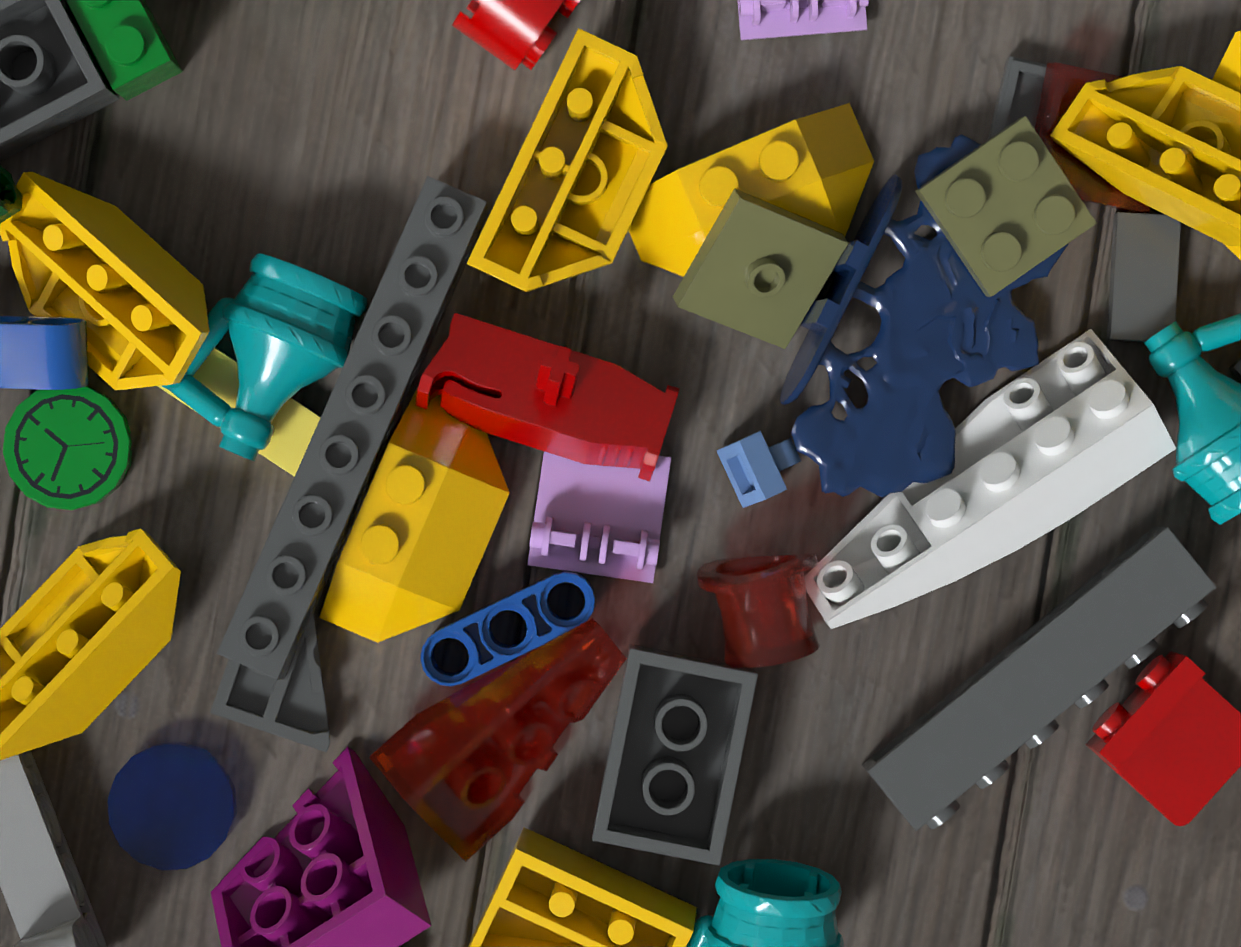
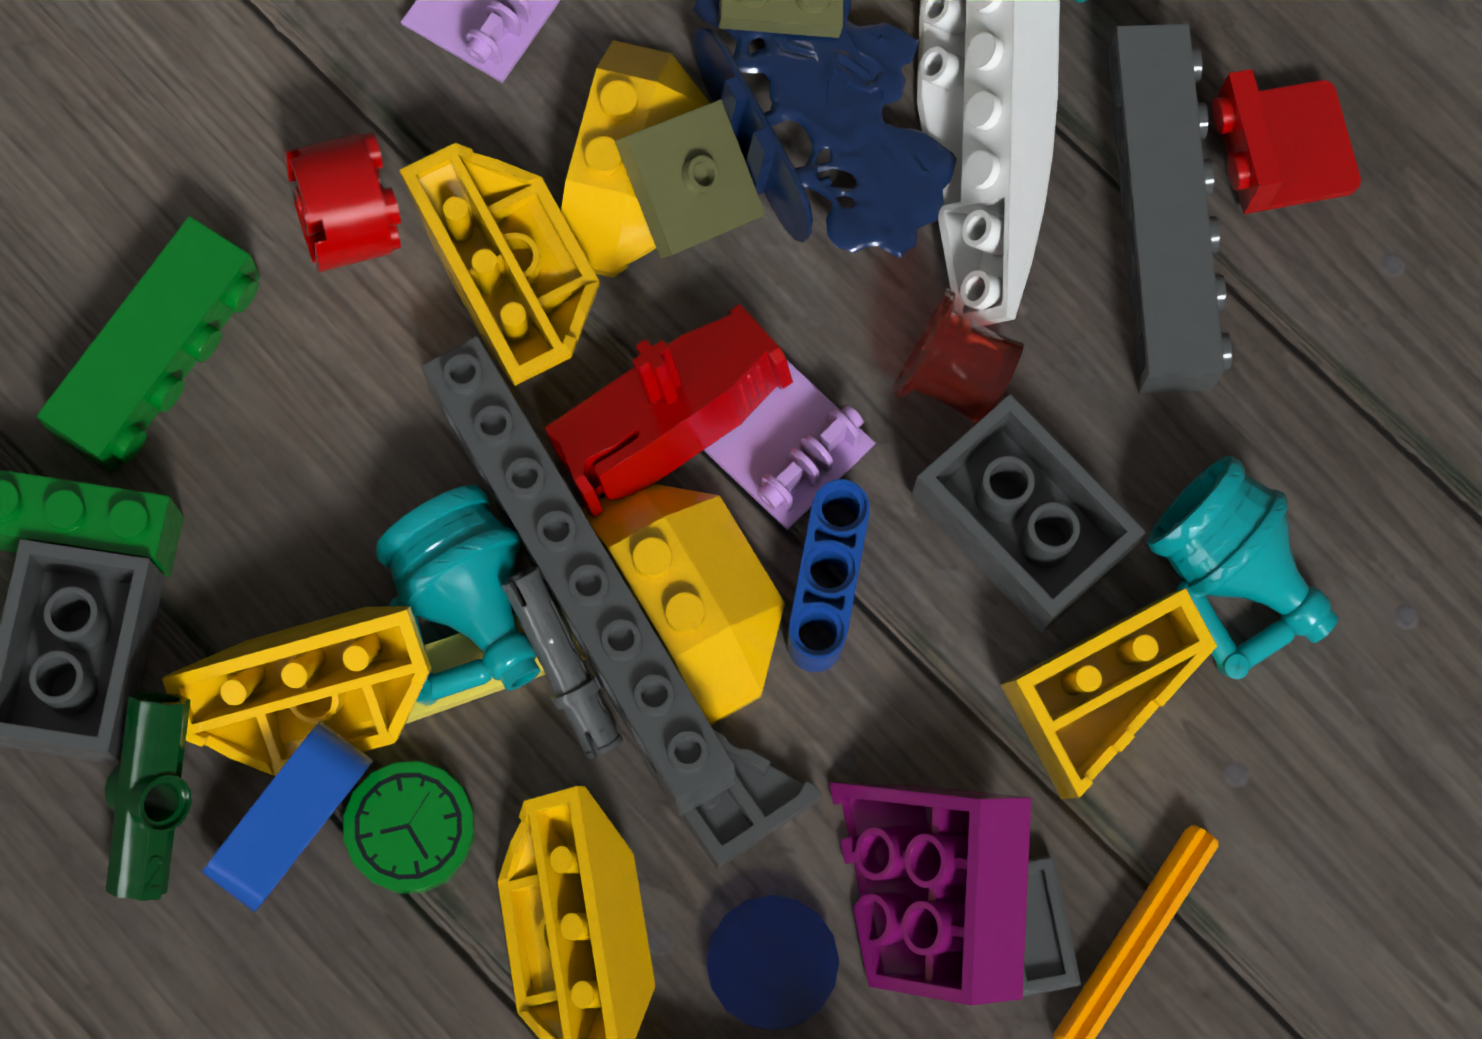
camera: 60 degrees left, 15 degrees down
(277, 464) = (572, 684): none -> dark grey pin
(482, 745) = (906, 670): clear red wedge -> none
(756, 467) = (842, 297): medium blue tile -> none

